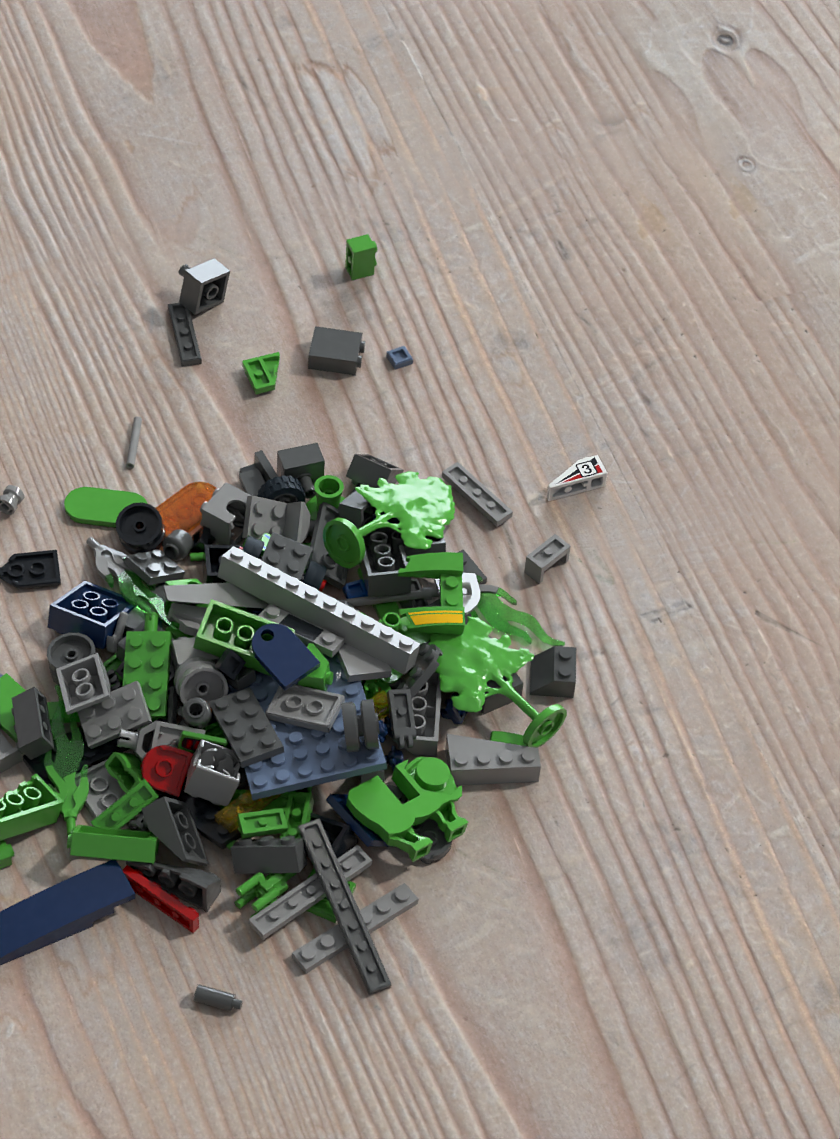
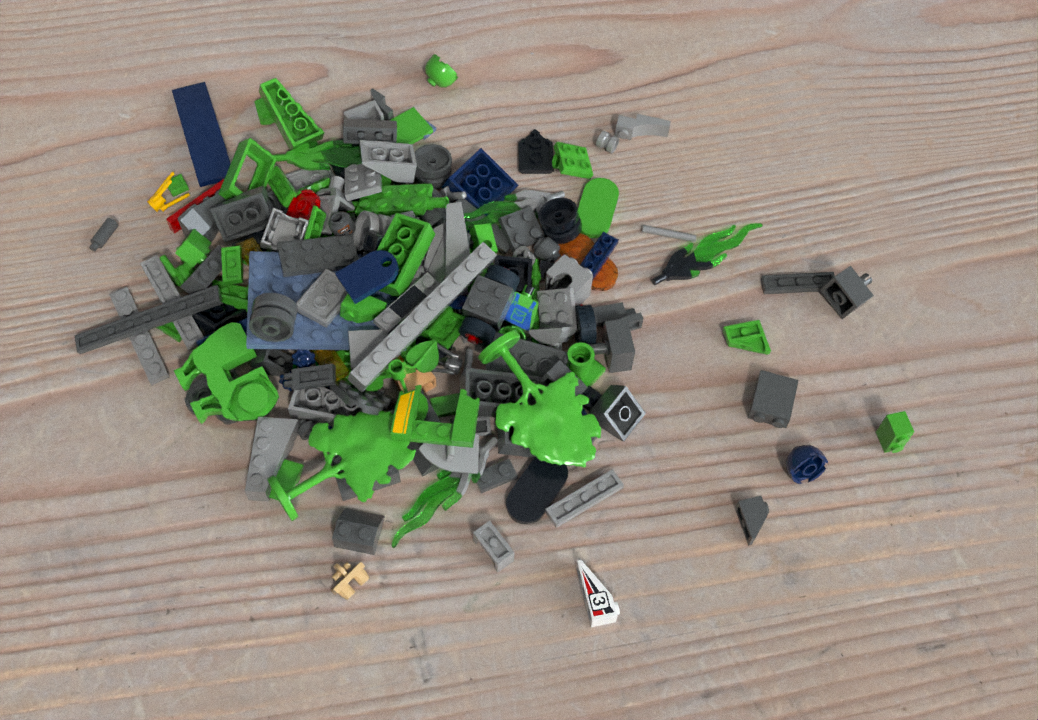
camera: 100 degrees right, 10 degrees up
(37, 528) = (572, 160): none -> bright green plate
(125, 937) = (177, 186): none -> bright green tile
(158, 946) = (157, 201): none -> yellow plant
(167, 415) = (701, 259): none -> piece
(177, 497) = (599, 253): none -> dark blue tile
(189, 566) = (524, 252): none -> light grey wheel
(241, 870) = (194, 248): none -> bright green brick
(399, 357) = (768, 458): sand blue tile -> none
(404, 325) = (805, 463): none -> dark blue cylinder
(446, 729) = (305, 429): none -> dark grey tile
(471, 365) = (751, 515): none -> dark grey slope
(478, 536) = (535, 491): none -> black tile
(608, 673) = (356, 573): none -> tan hips

